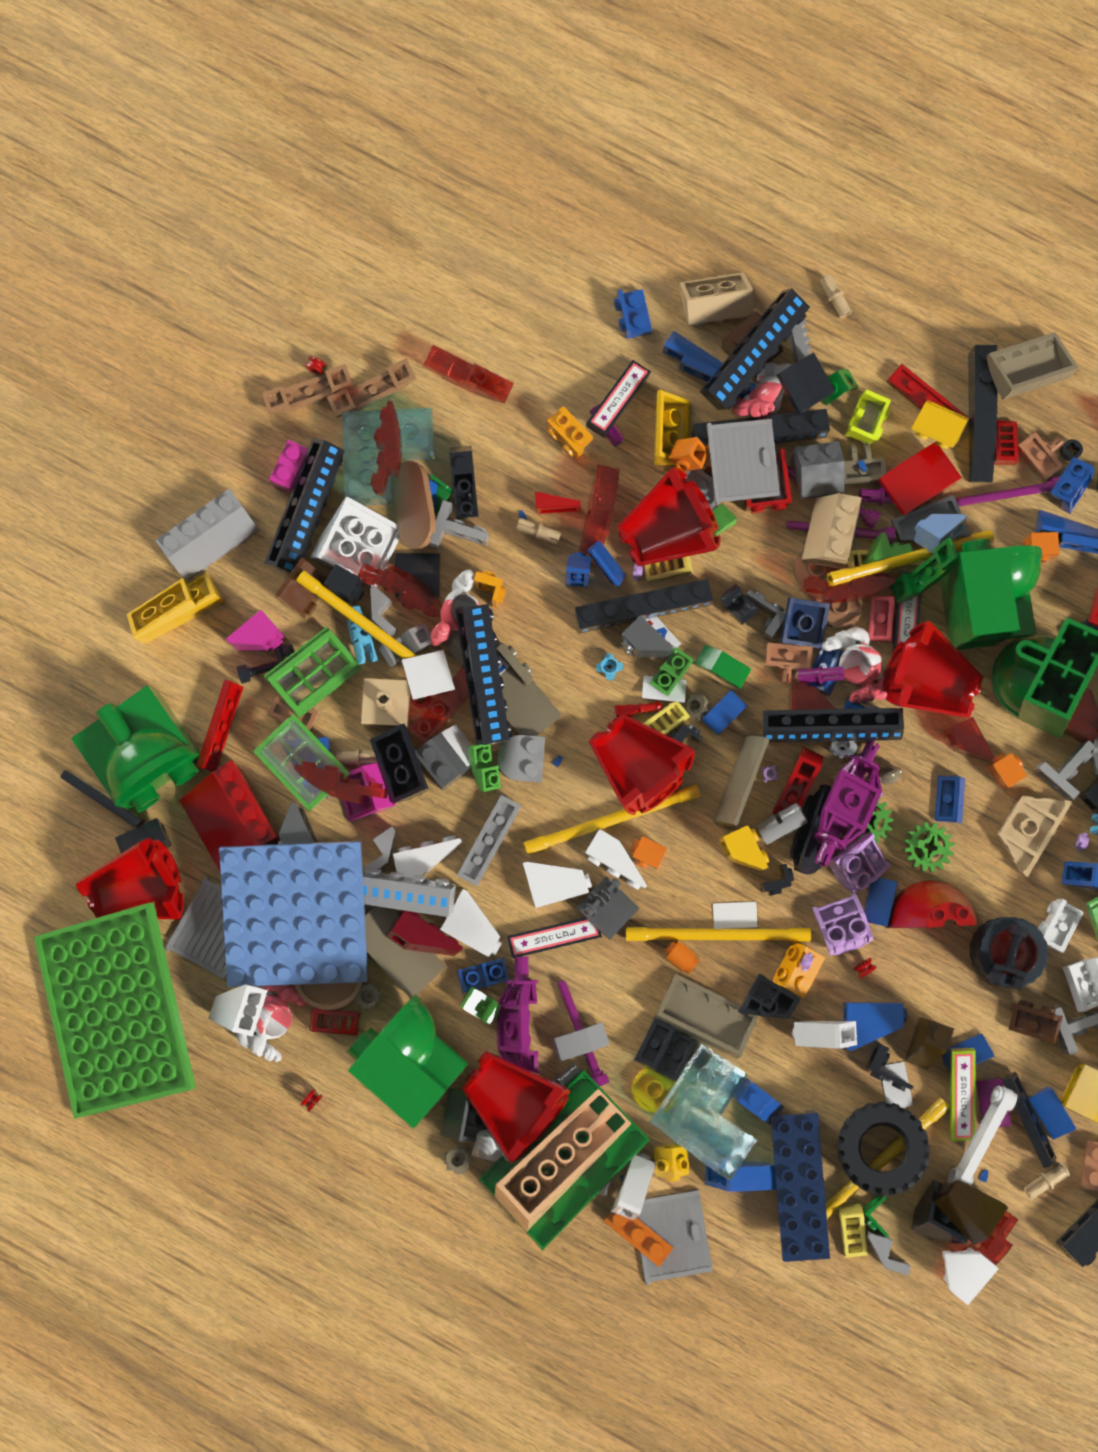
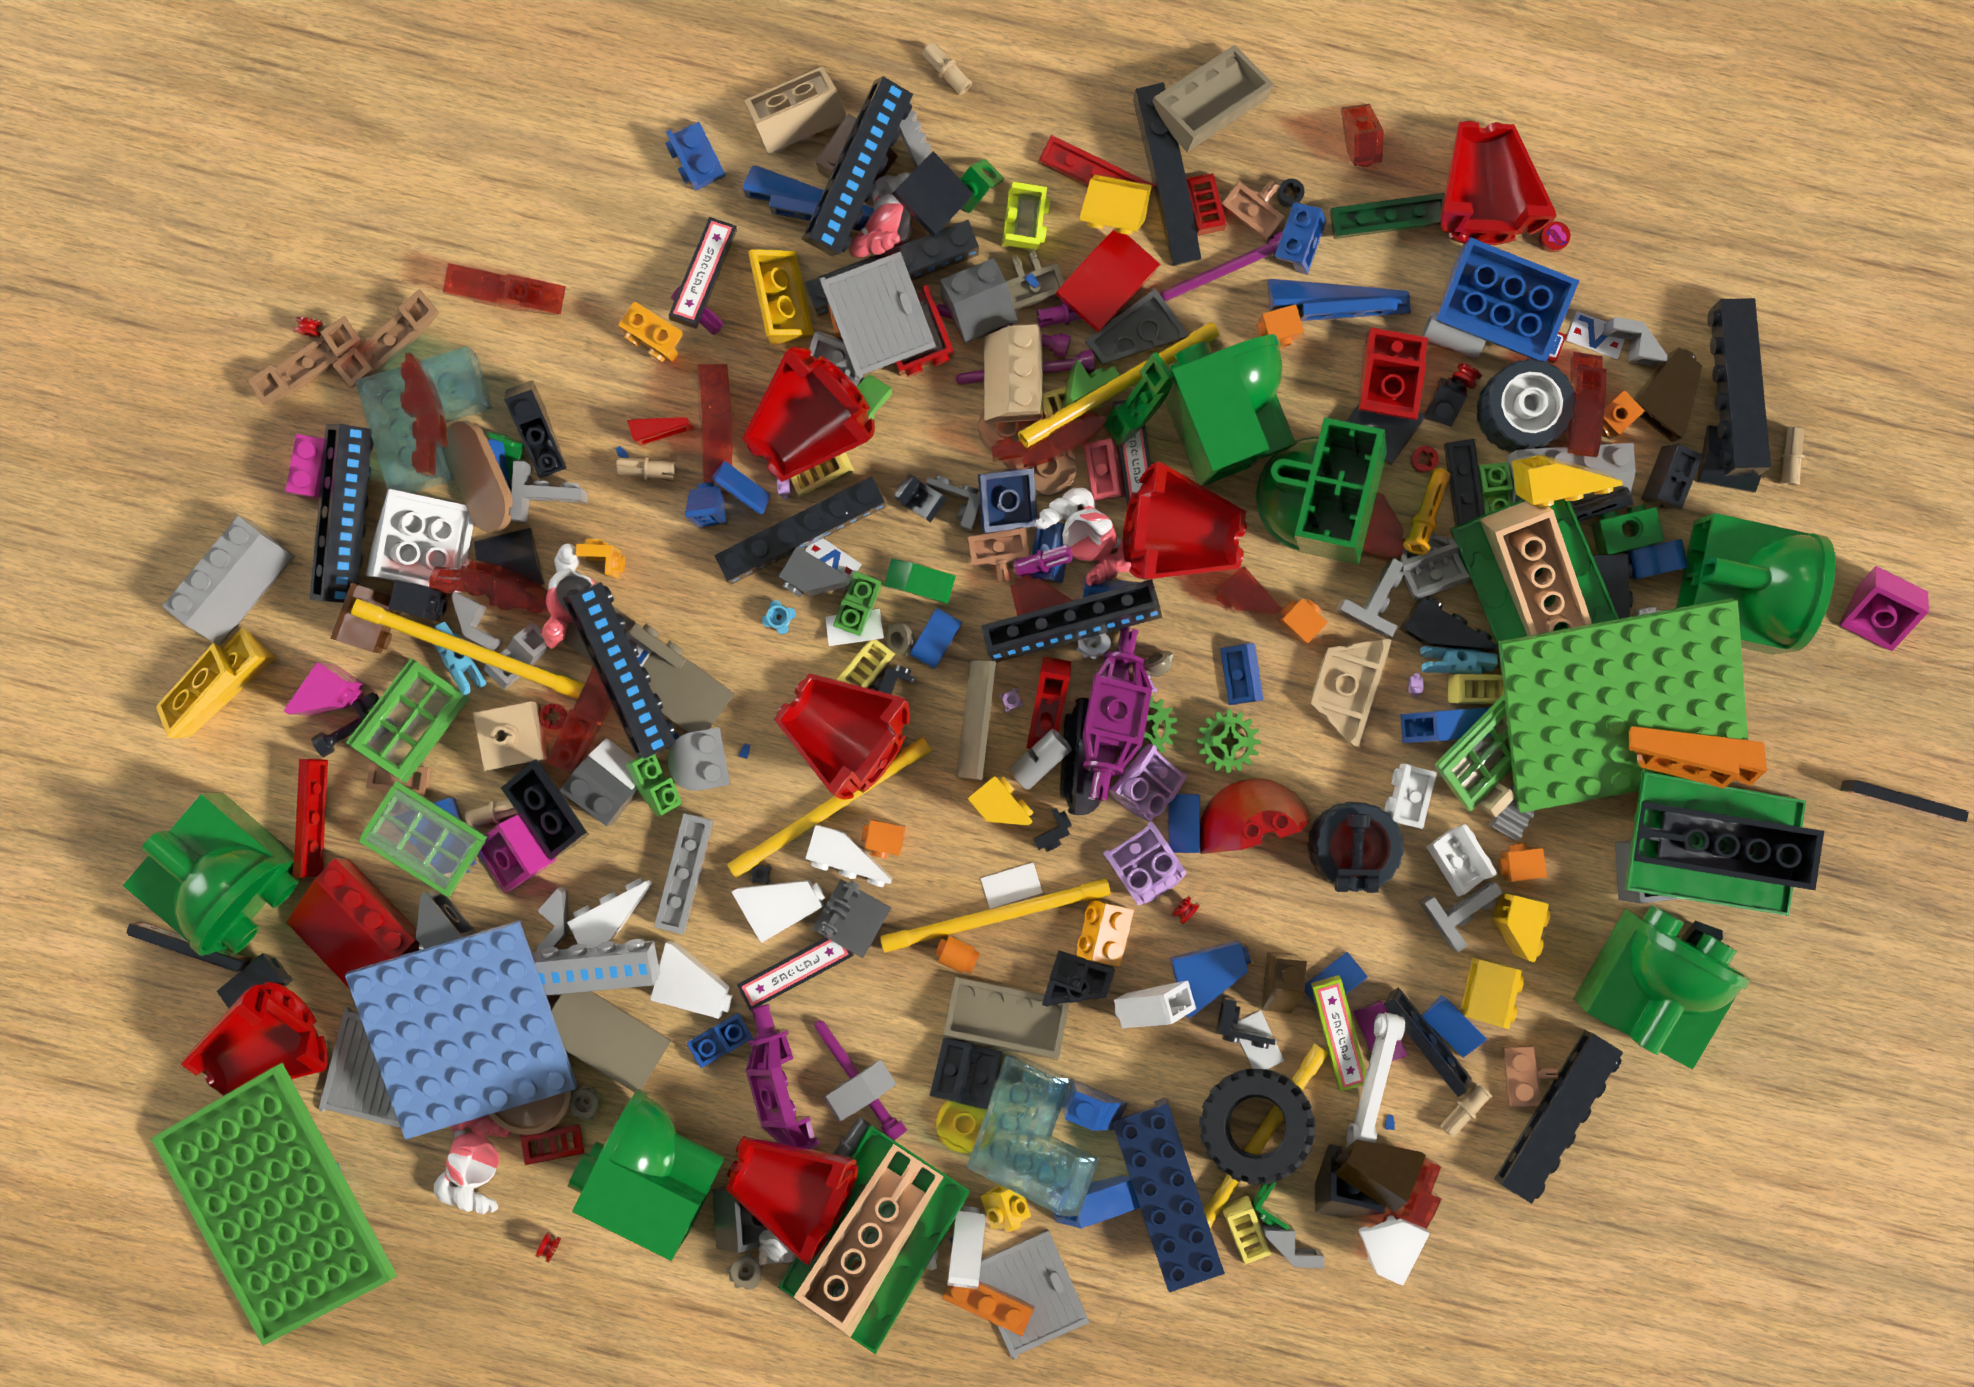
camera: 20 degrees left, 5 degrees up
(239, 1009) = (426, 1164): white slope -> none
(332, 783) = (465, 856): clear red slope -> none
(417, 935) = (625, 1014): dark red slope -> none
(428, 674) = (552, 687): white sticker -> none
(481, 1005) = (725, 1078): bright green bracket -> none
(546, 856) = (761, 874): none -> black piece
(630, 710) = (818, 665): red piece -> none
(689, 454) = (808, 323): orange brick -> none
(807, 962) = (1110, 923): lavender piece -> none
(938, 528) = (1145, 338): light blue slope -> none
(1035, 1022) = (1407, 923): reddish brown bracket -> none

